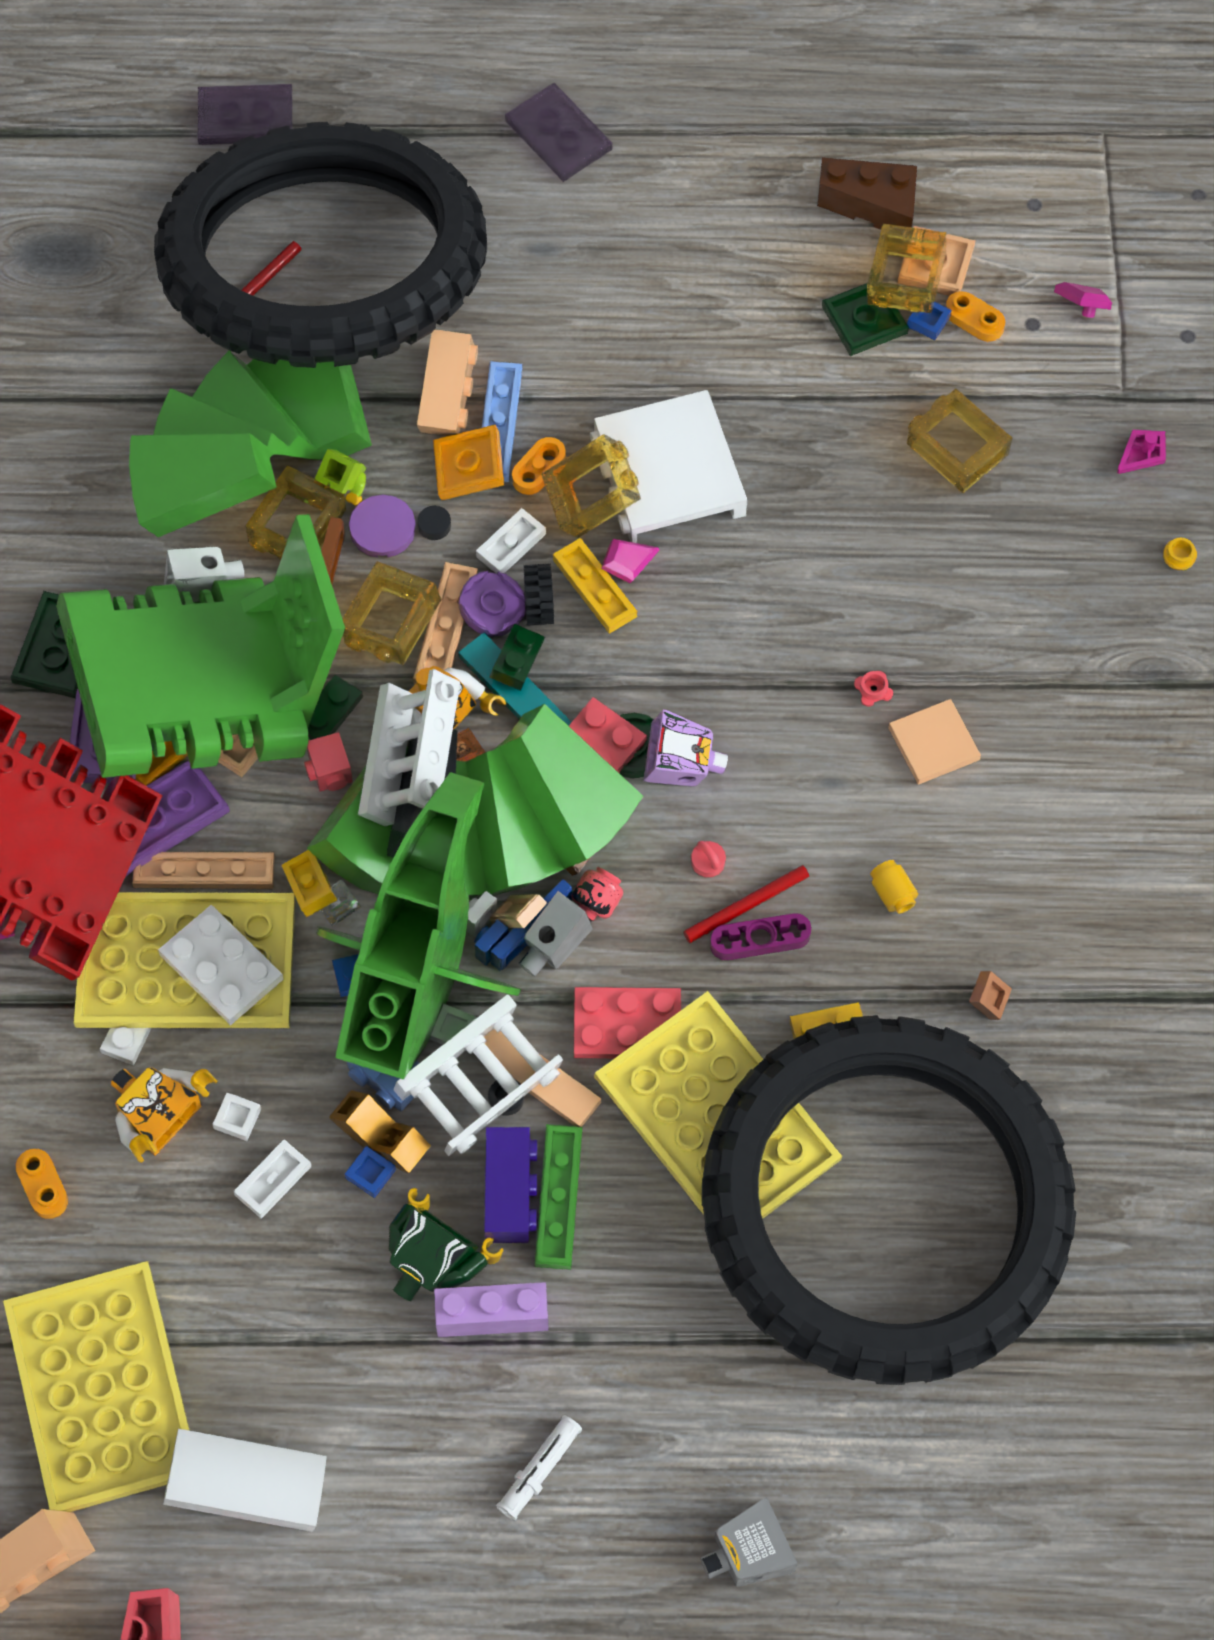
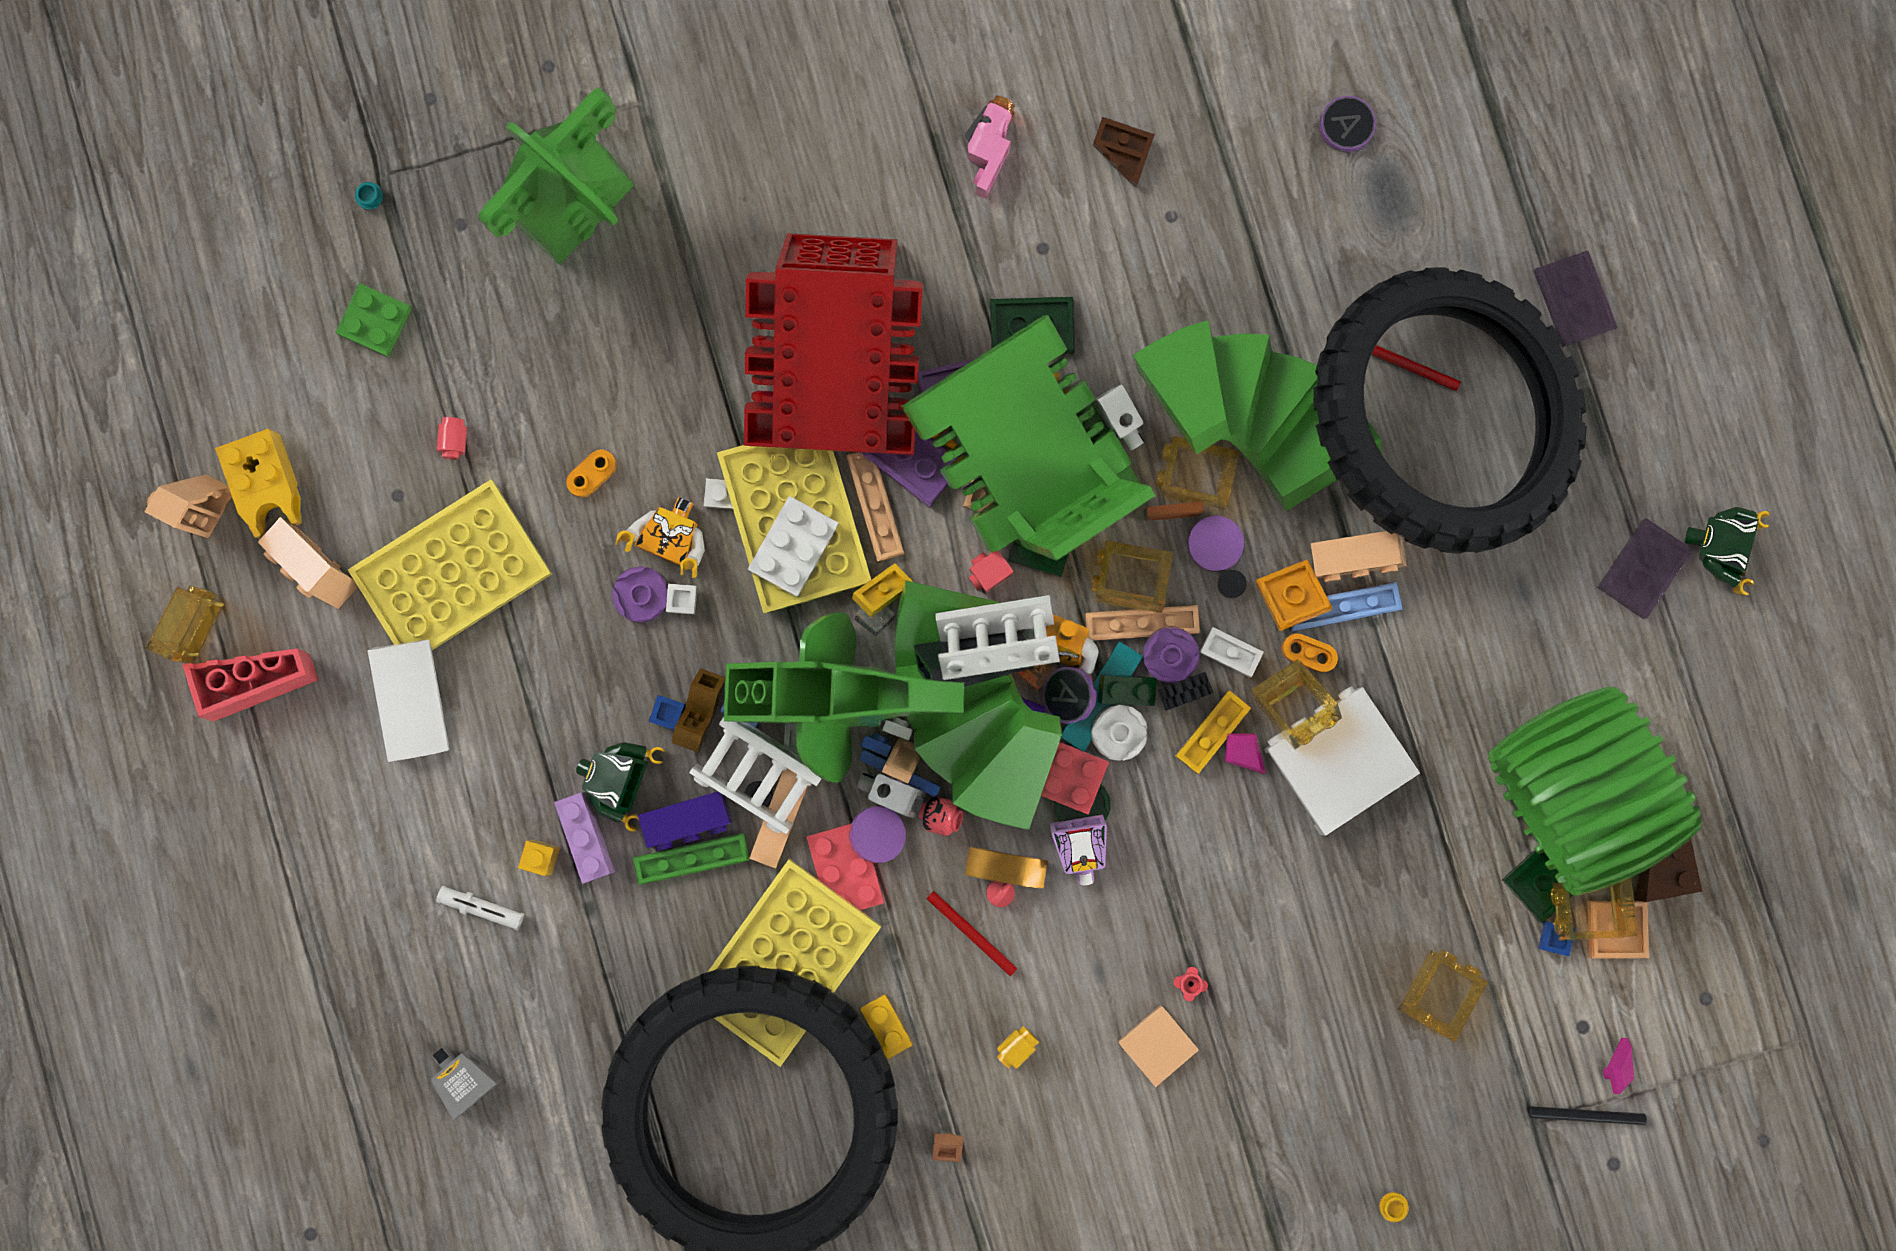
camera: 75 degrees right, 20 degrees up
(213, 1166) = (640, 594): none -> medium lavender tile
(272, 1178) = (641, 642): white plate -> none
(342, 474) = (1245, 498): lime piece -> none
(496, 712) = (1069, 694): none -> black tile
(498, 1372) = (539, 857): none -> yellow brick
(561, 48) = (1728, 544): none -> dark green torso
(562, 680) = (1119, 732): none -> white tile
(597, 970) = (877, 834): none -> medium lavender tile
(679, 839) = (1006, 867): none -> pearl gold brick
(734, 931) = (963, 968): magenta beam -> none
(776, 214) = (1595, 790): none -> bright green wheel
(973, 316) = (1570, 975): light orange plate -> none
(1128, 345) = (1587, 1115): none -> black bar
(1143, 450) = (1485, 1153): dark pink piece -> none

